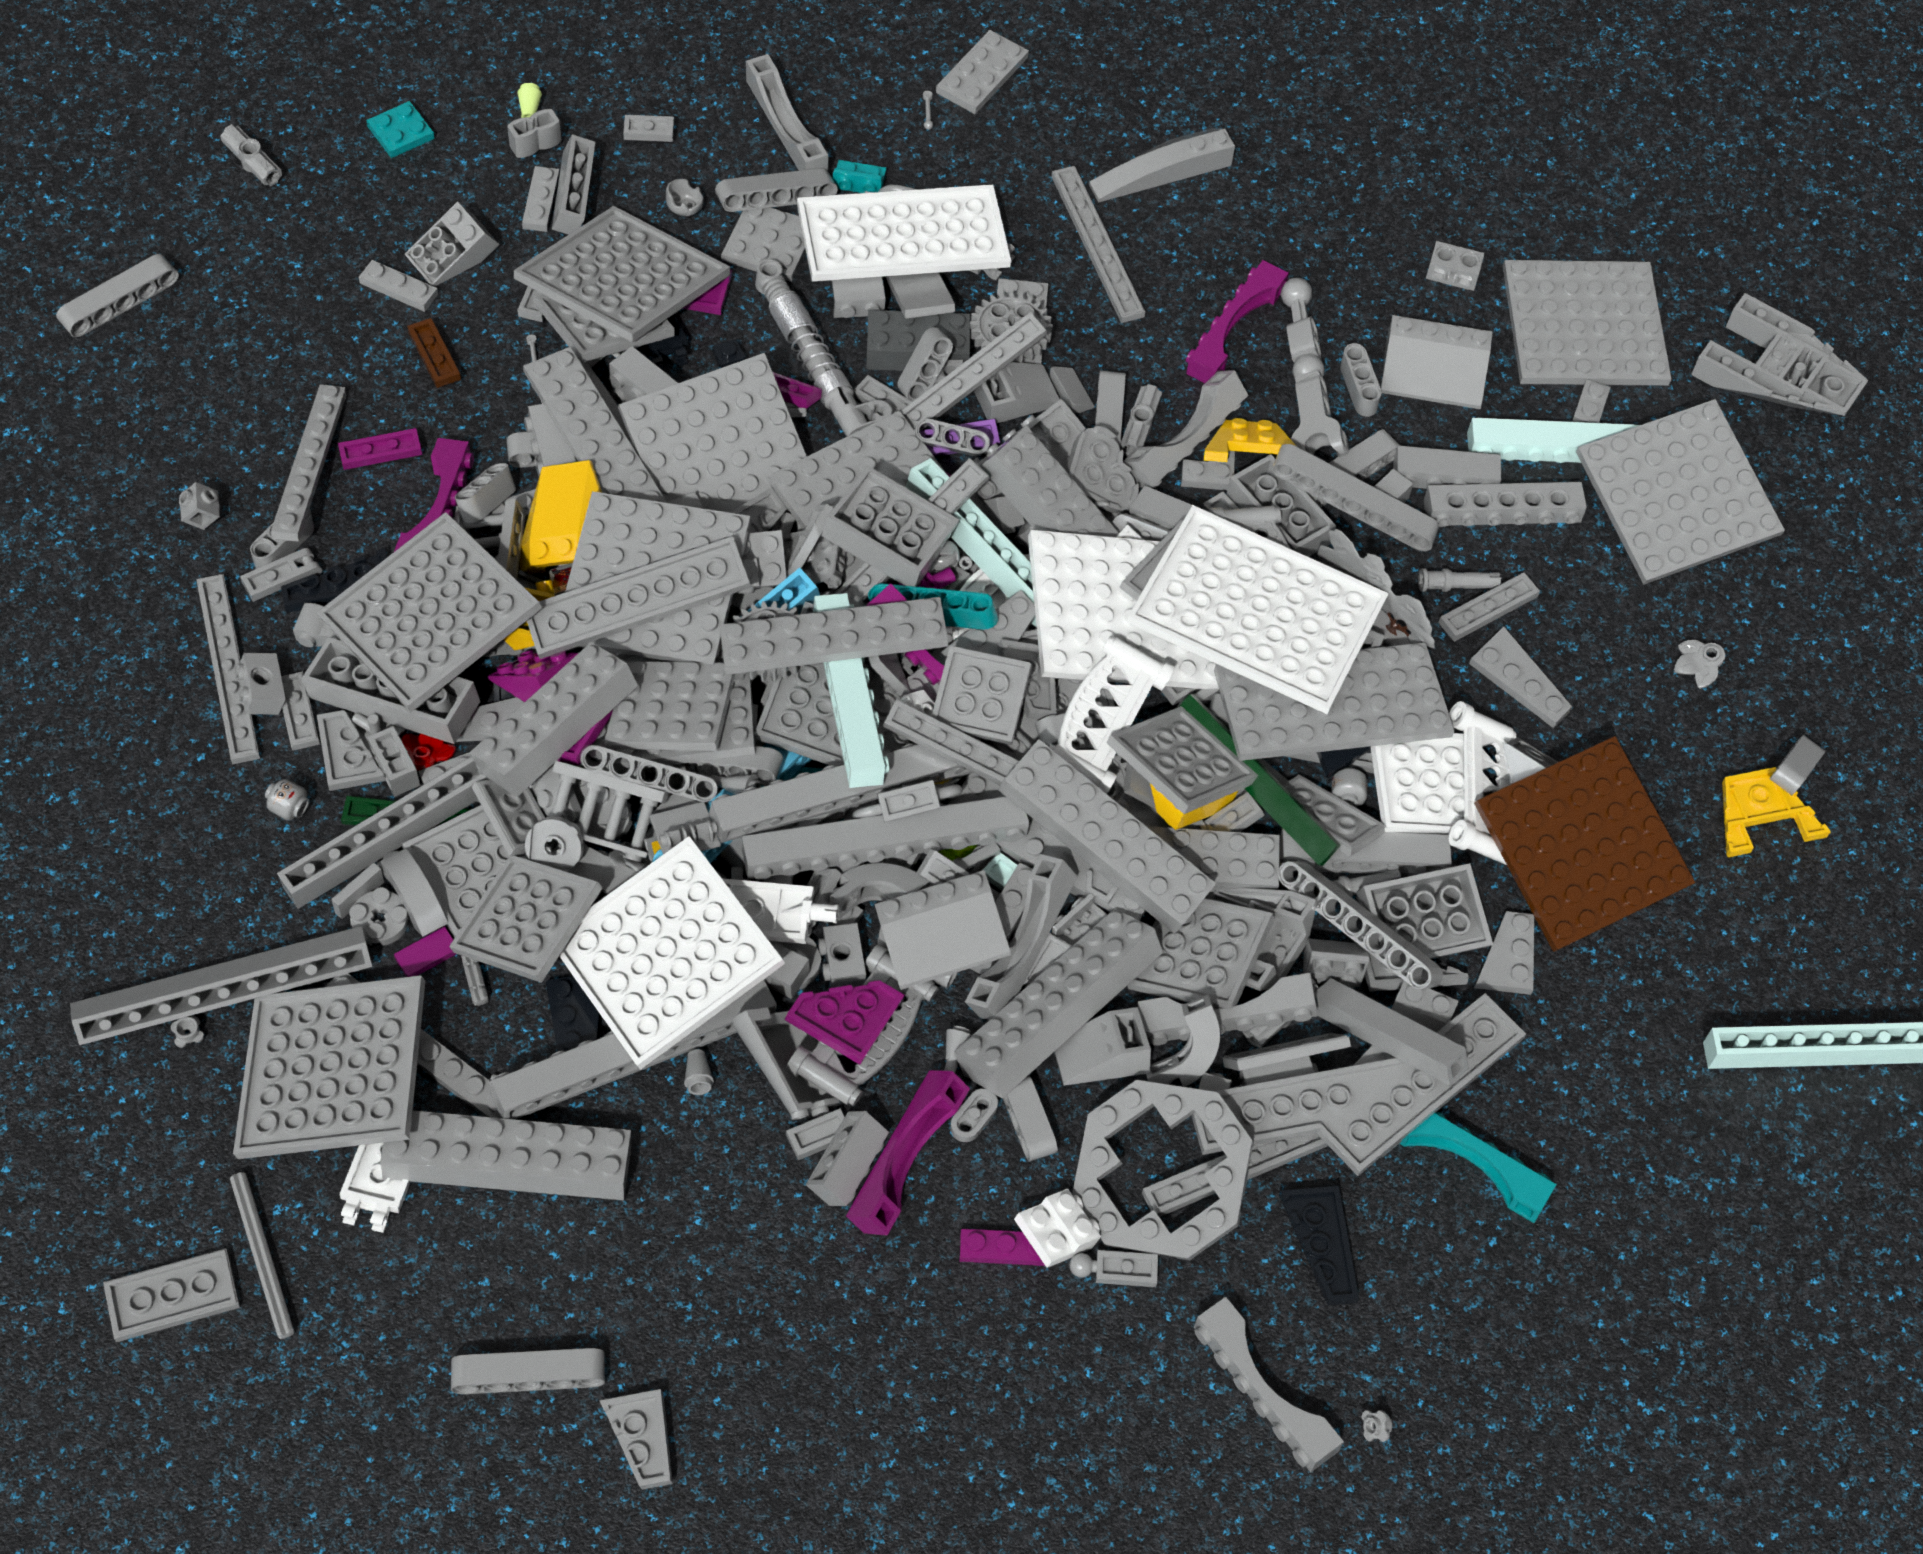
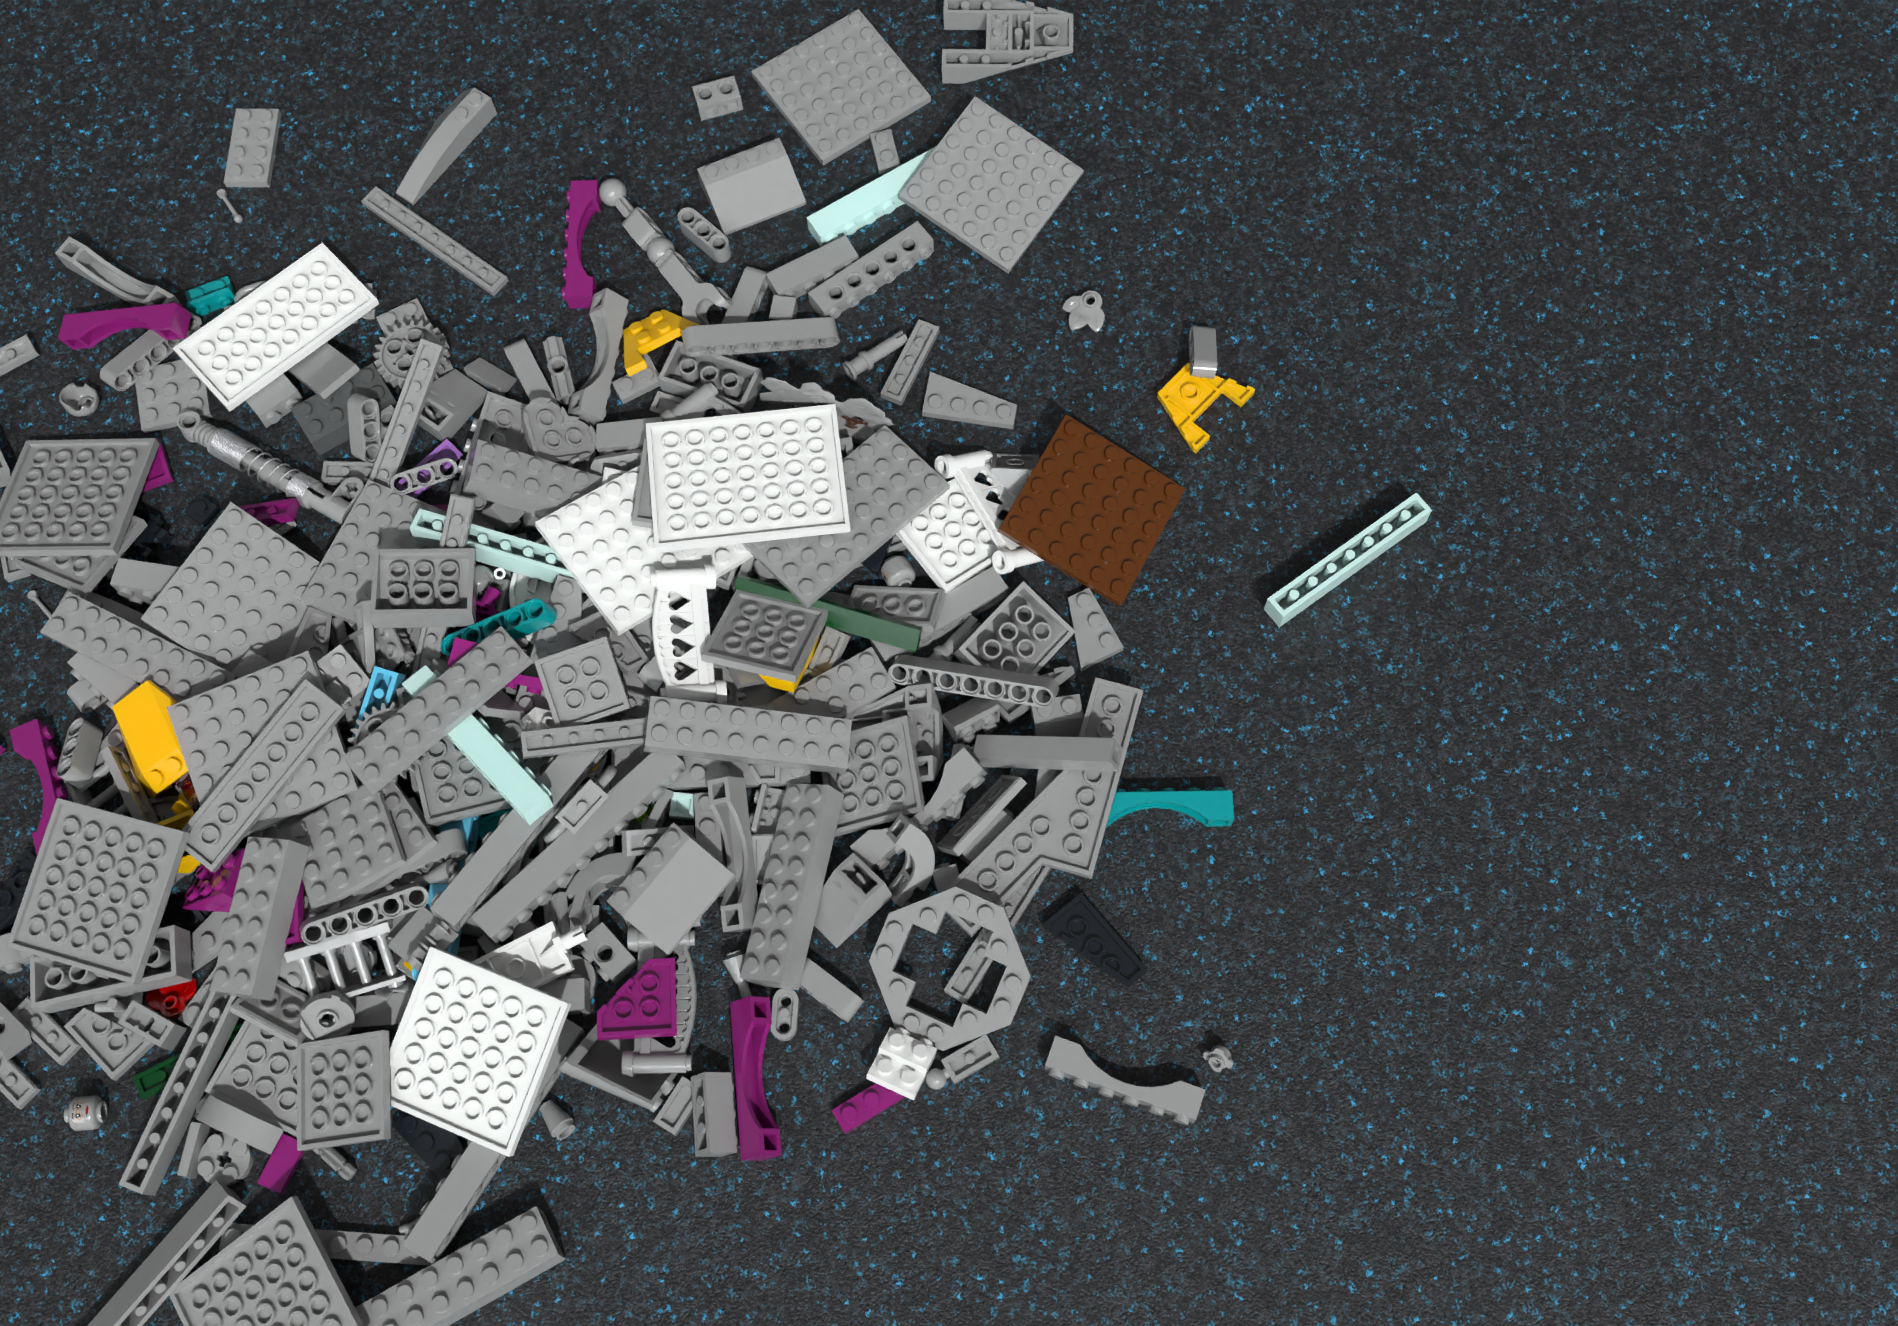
camera: 25 degrees left, 10 degrees up
(731, 142) = (90, 328): none -> magenta arch

